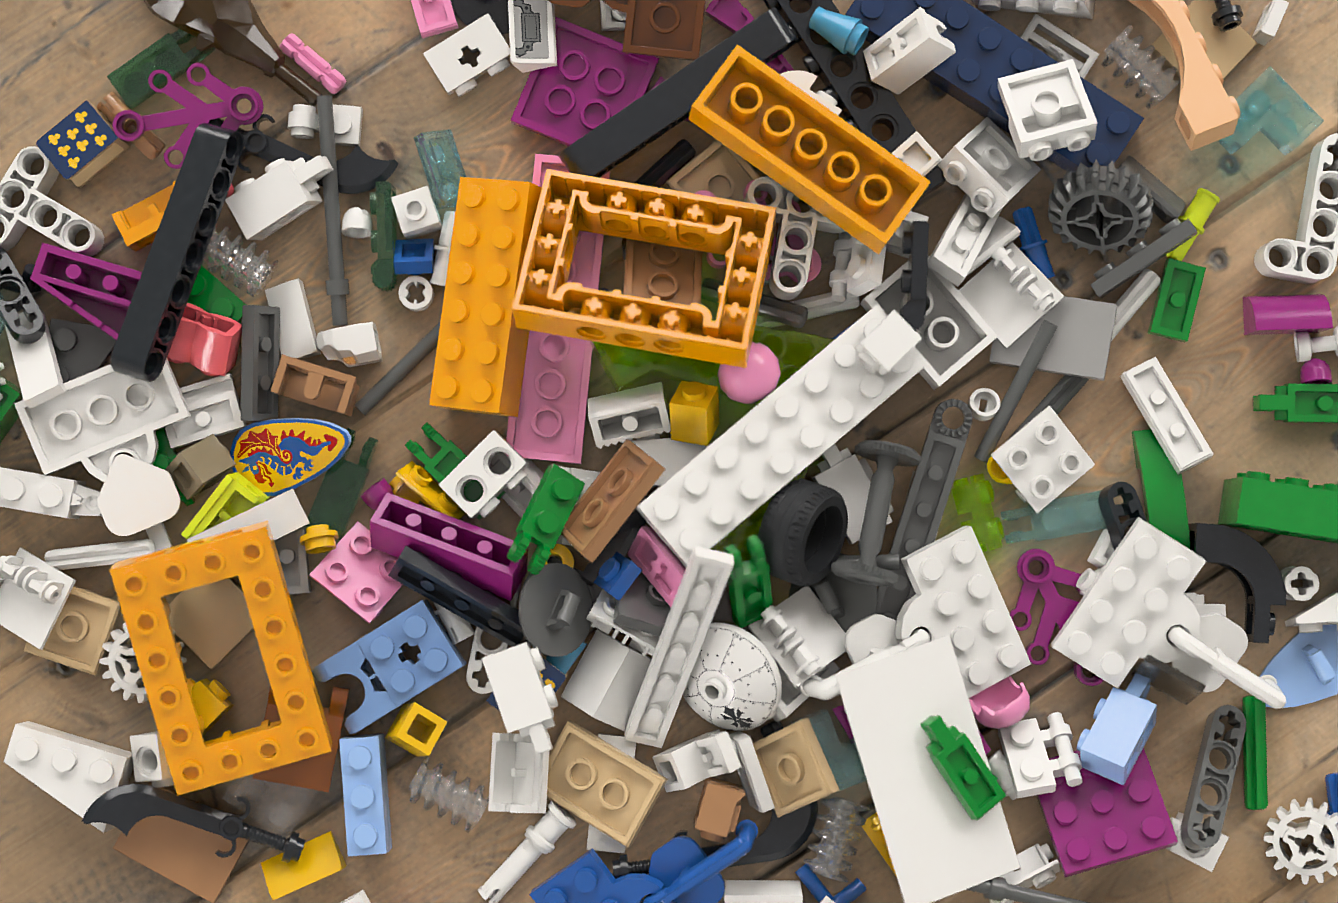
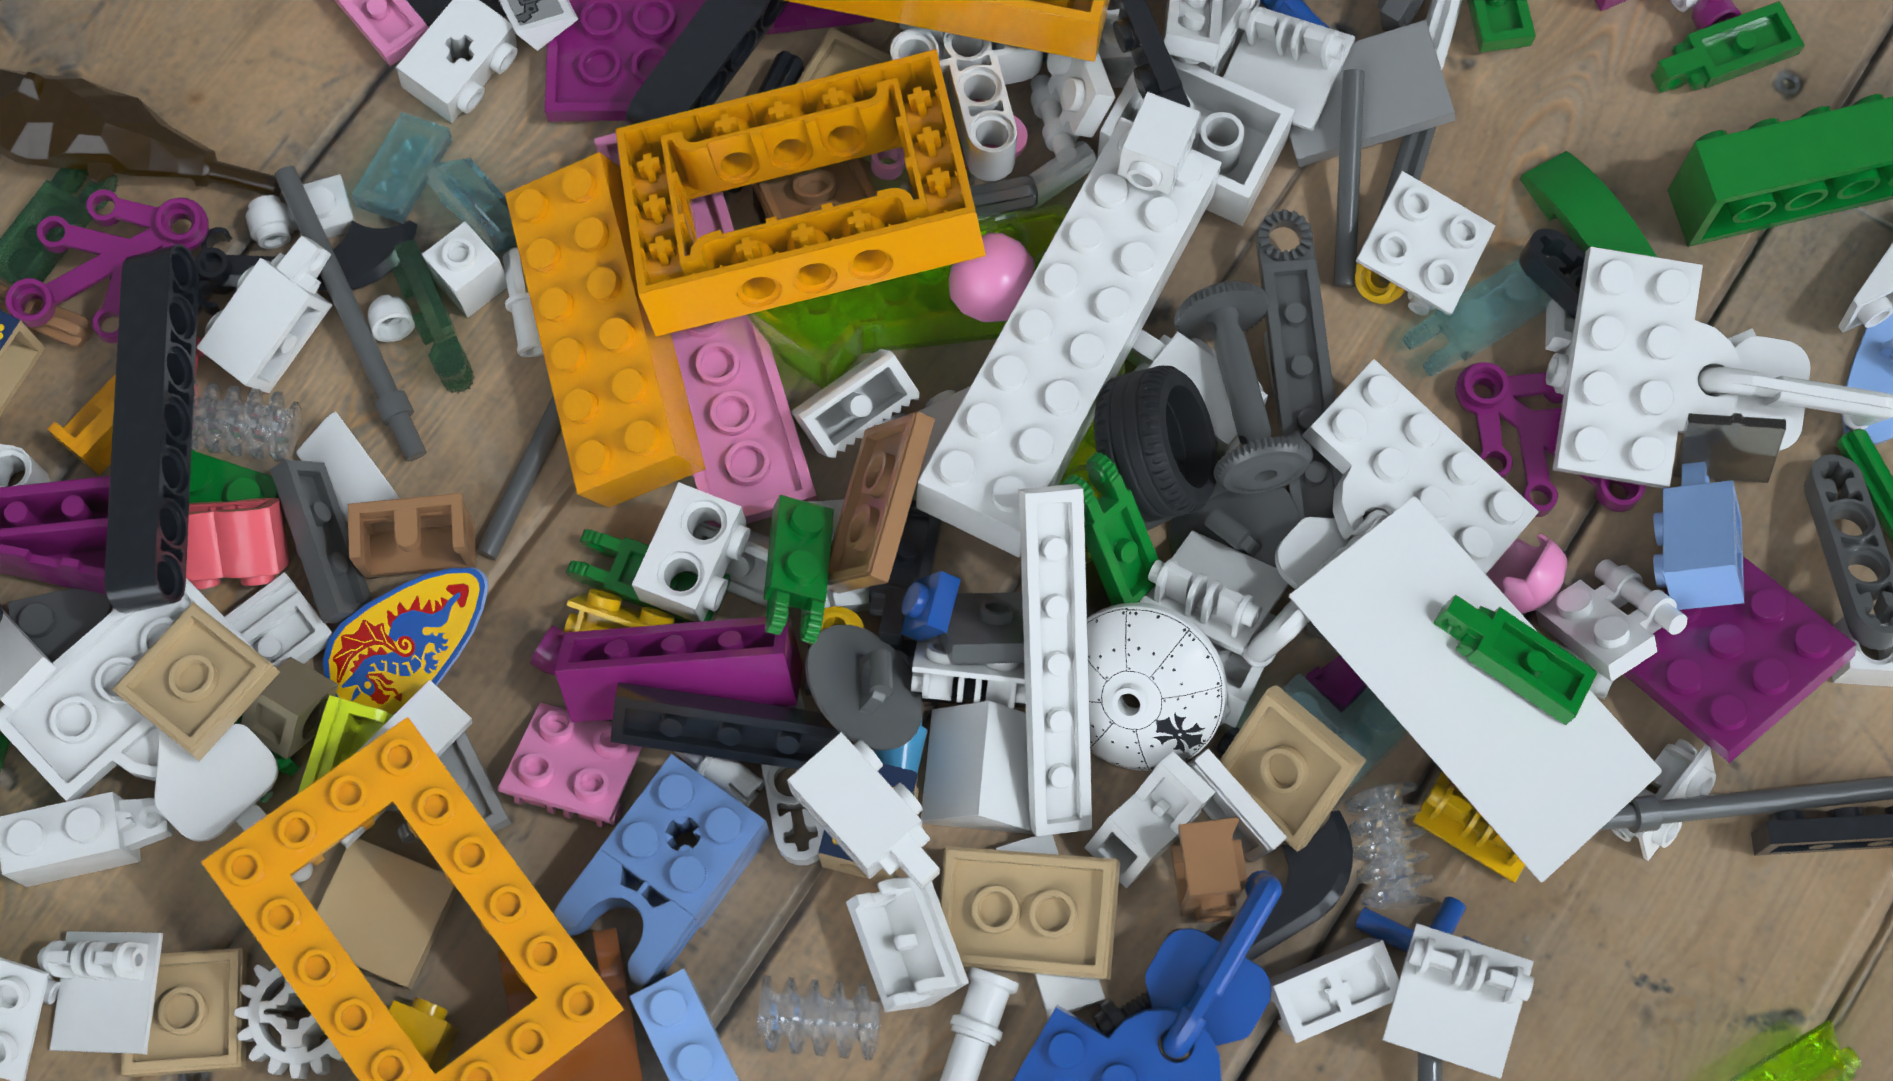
camera: 20 degrees left, 15 degrees down
(97, 554) = (165, 902): white axle -> none
(147, 435) = (196, 681): none -> tan tile
(312, 63) = (254, 148): bright pink axle -> none
(319, 539) = (494, 736): yellow plate -> none
(342, 489) = (500, 669): clear green hinge -> none
(351, 344) = (439, 466): white rock -> none
(403, 120) = (399, 167): none -> clear light blue plate
(404, 294) = (499, 359): white bush -> none
(414, 256) = (483, 327): blue plate -> none
(416, 729) = (734, 942): yellow brick -> none
(657, 563) = (984, 570): bright pink hinge -> none
(694, 413) = (940, 358): yellow brick -> none
(977, 499) = (1360, 334): clear neon green hinge -> none
(992, 404) = (1326, 211): white hinge -> none
(1166, 415) = (1556, 134): white tile -> none
(1252, 567) = (1763, 273): black arch -> none
(1309, 579) = (1828, 269): white bush -> none

